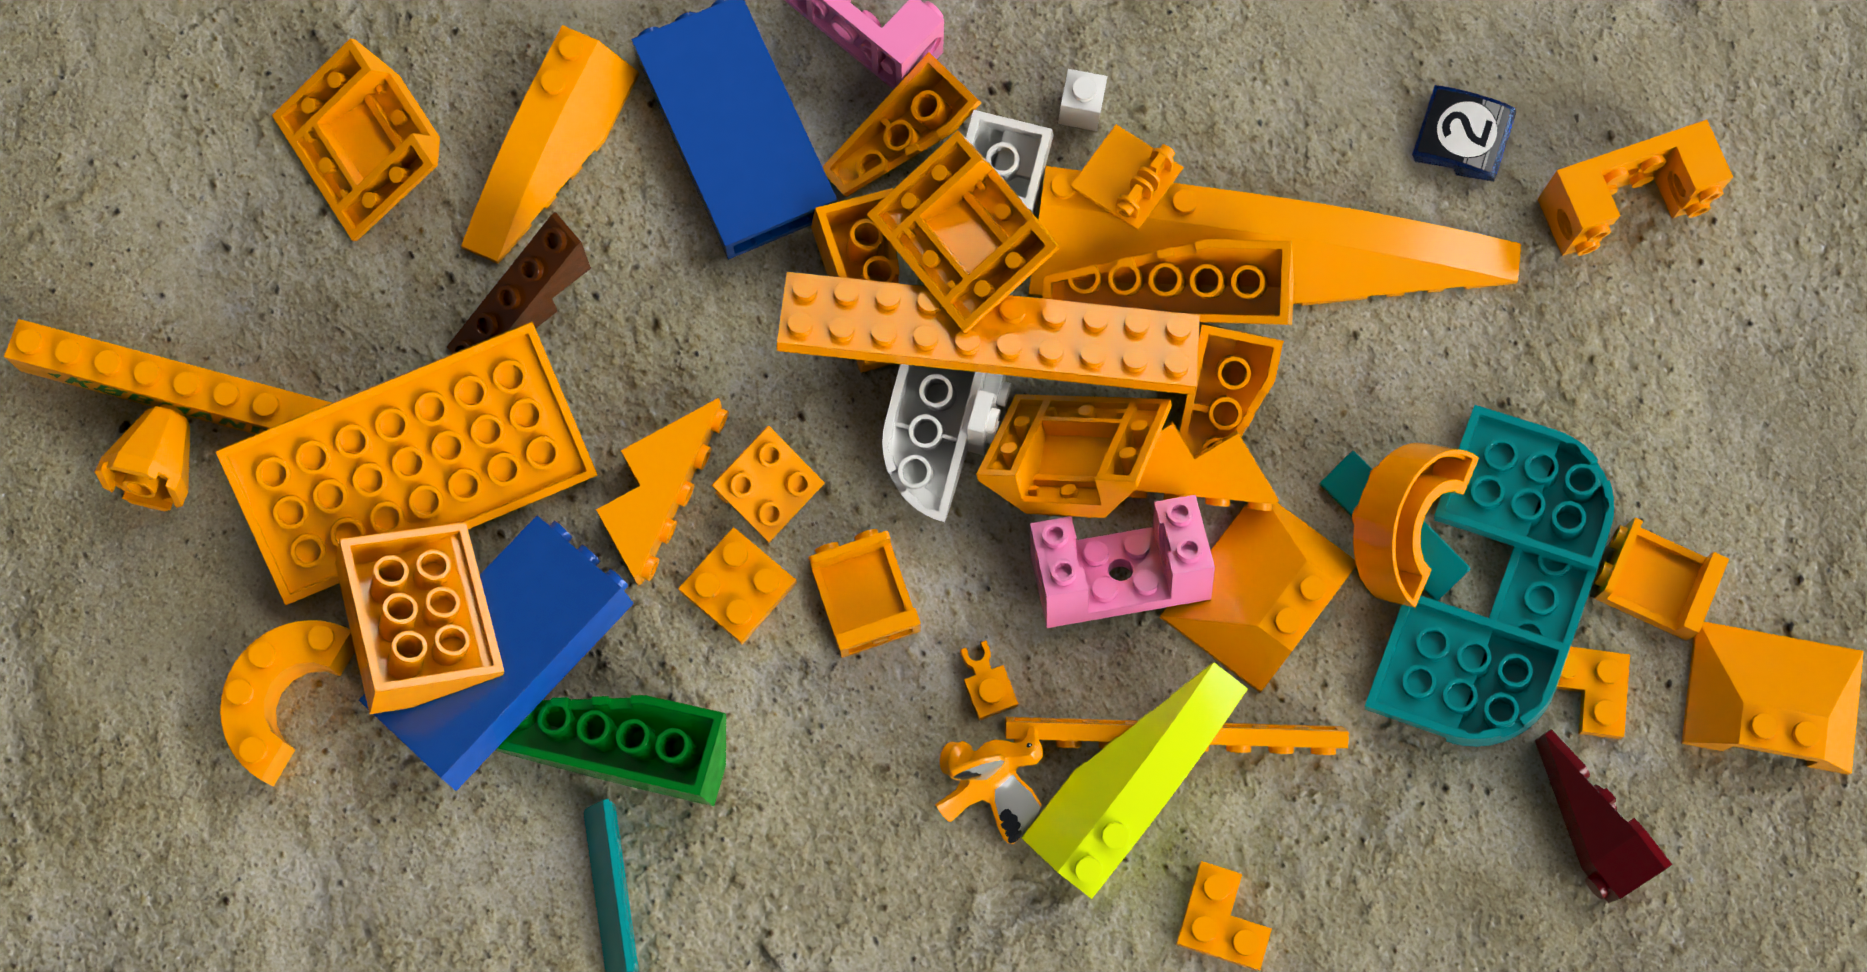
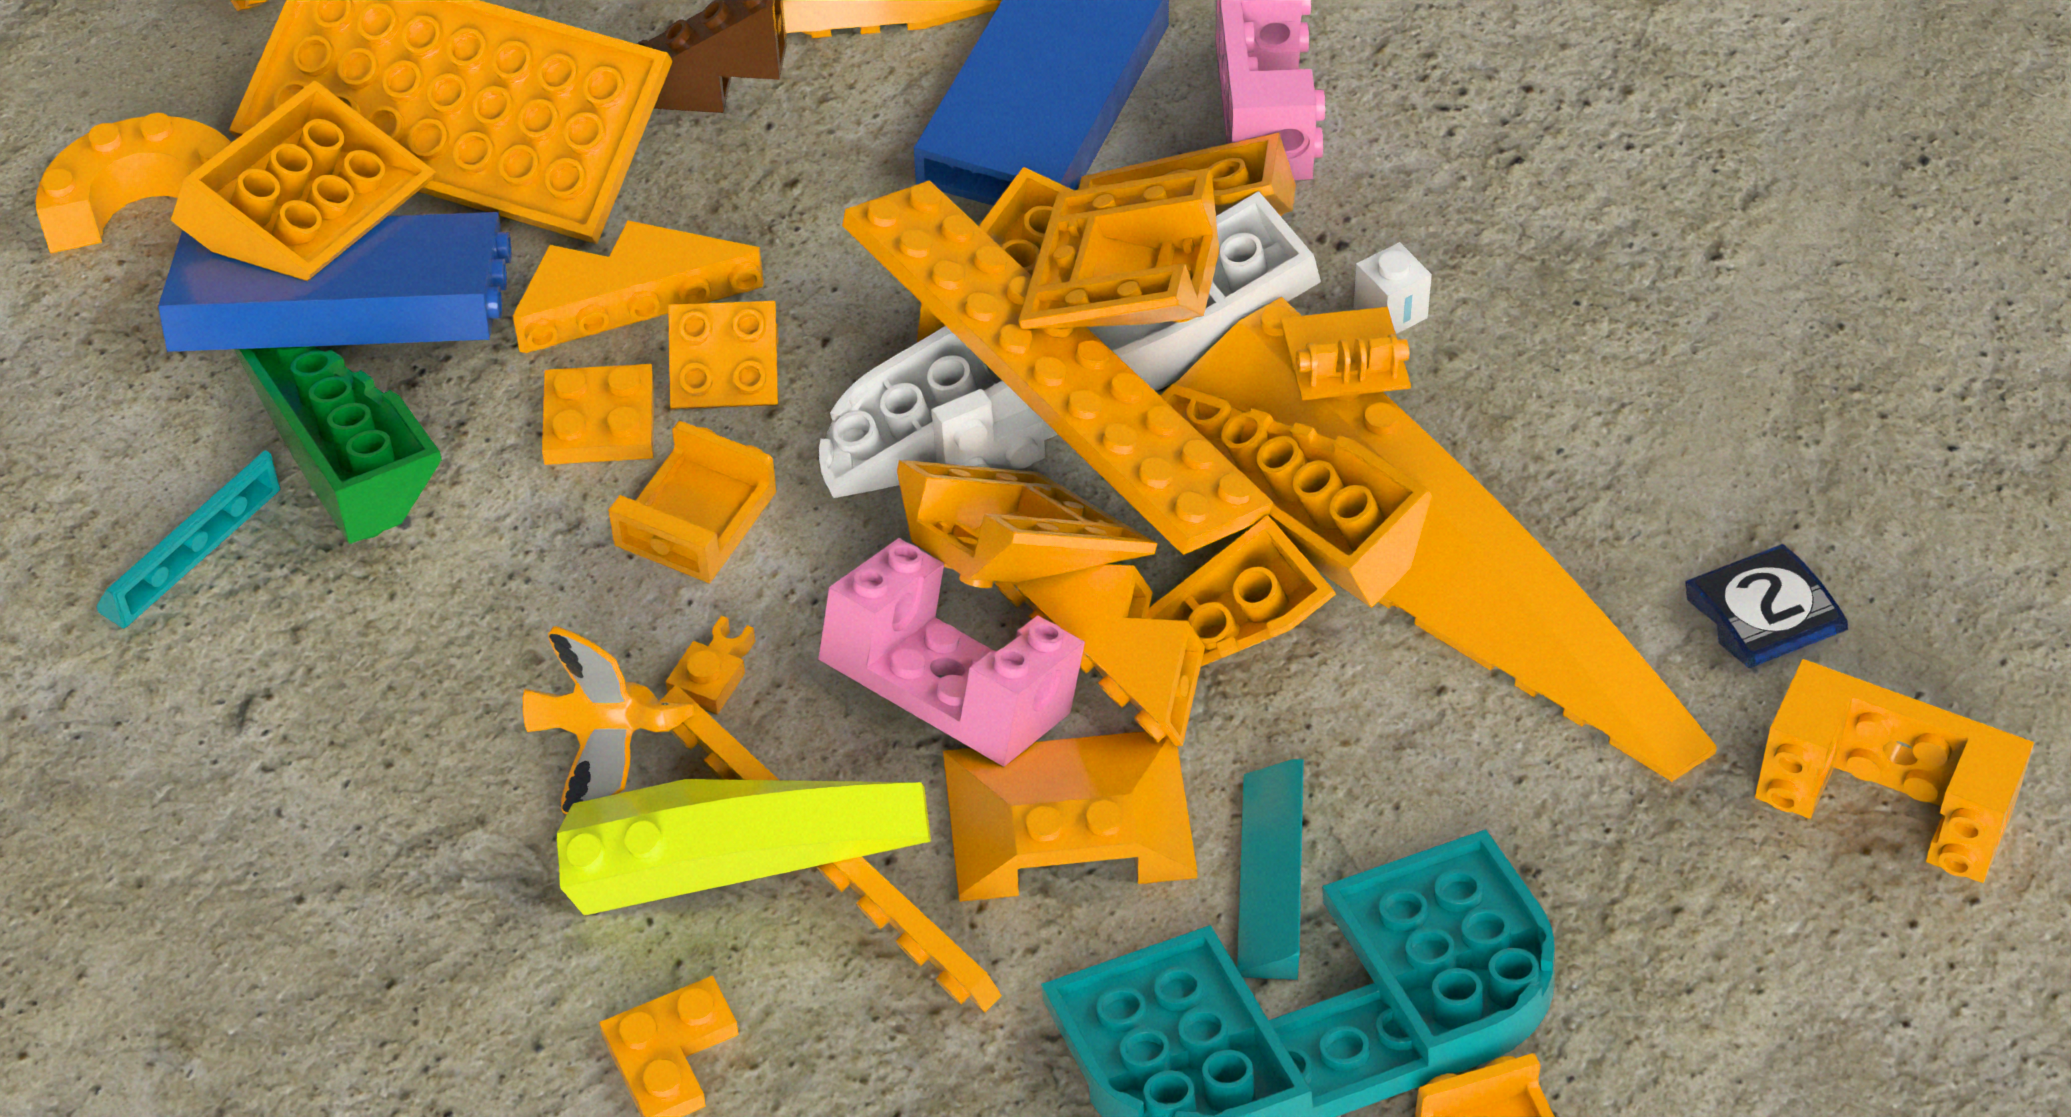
camera: 50 degrees right, 25 degrees down
(1393, 514) = (1267, 813): light orange brick -> none

